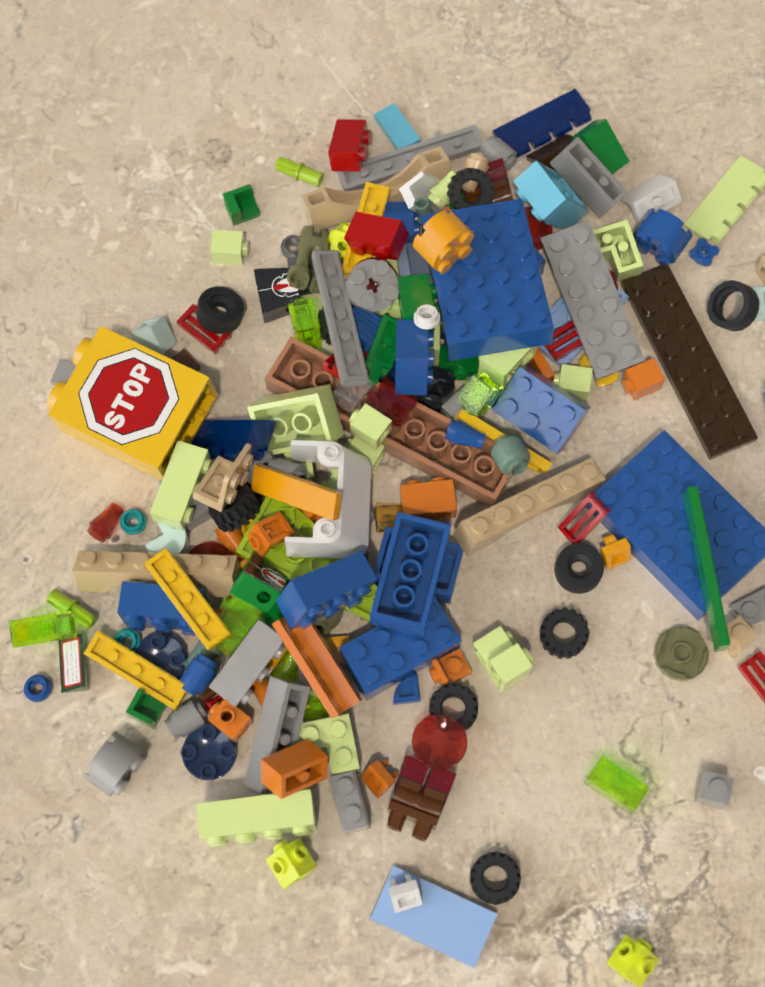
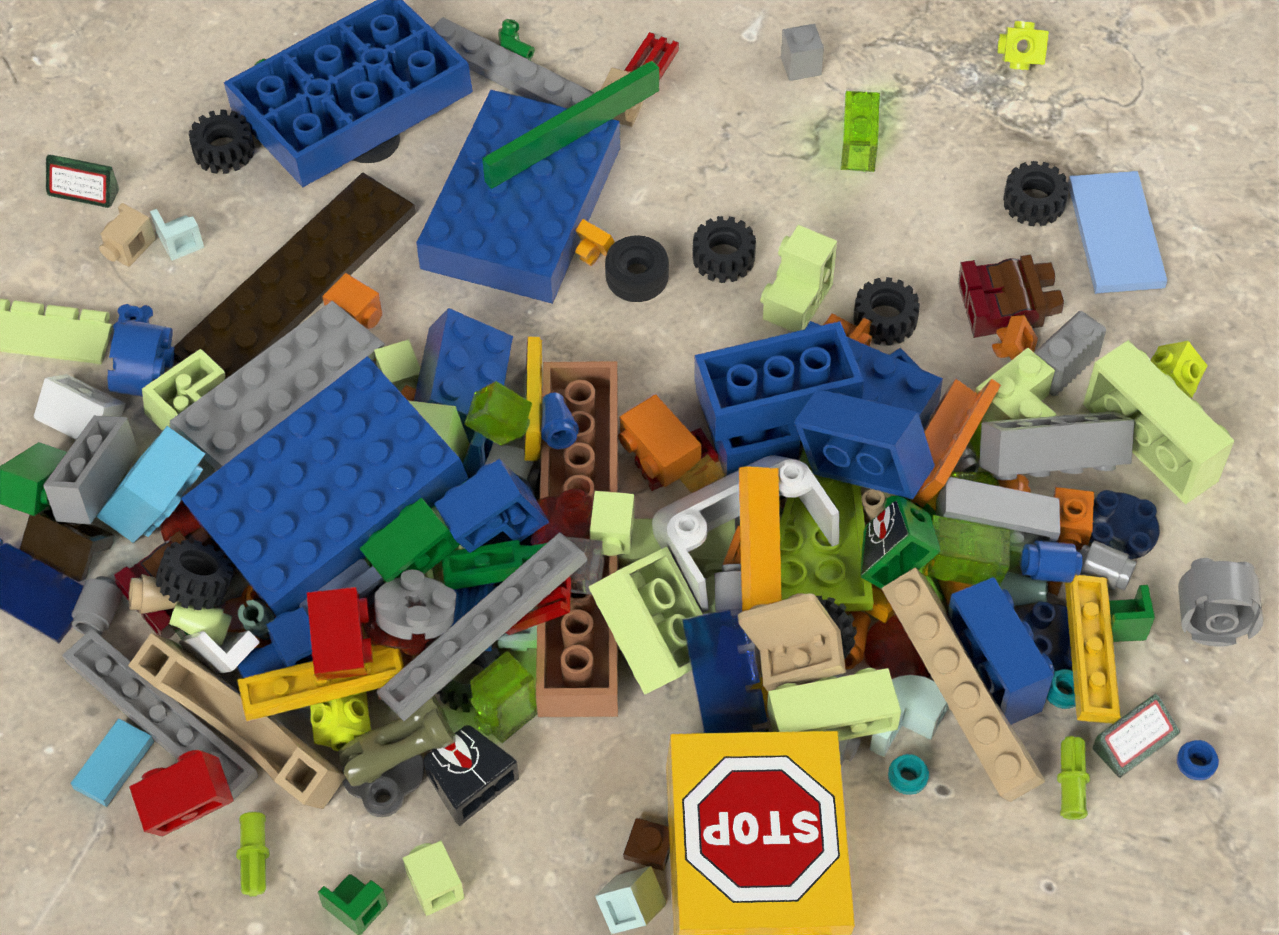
camera: 120 degrees left, 15 degrees down
(42, 629) = (1130, 779): clear neon green brick -> none
(105, 523) = (934, 804): clear red cone -> none
(187, 599) = (979, 601): yellow tile -> none
(217, 322) = (556, 843): black tyre -> none
(219, 342) = (570, 879): red tile -> none
(269, 533) = (828, 562): orange bracket -> none
(294, 768) = (1086, 387): orange brick -> none
(405, 895) = (1121, 249): white tile -> none
(426, 317) = (427, 493): white plate -> none
(439, 742) = (939, 290): clear red dish -> none
(444, 241) = (315, 517): light orange brick -> none
(509, 514) = (654, 338): tan arch -> none
(510, 455) = (555, 358): sand green head -> none
(597, 506) = (574, 283): red tile -> none
(681, 653) = (670, 144): olive tile -> none
(717, 300) = (228, 243): black tyre -> none

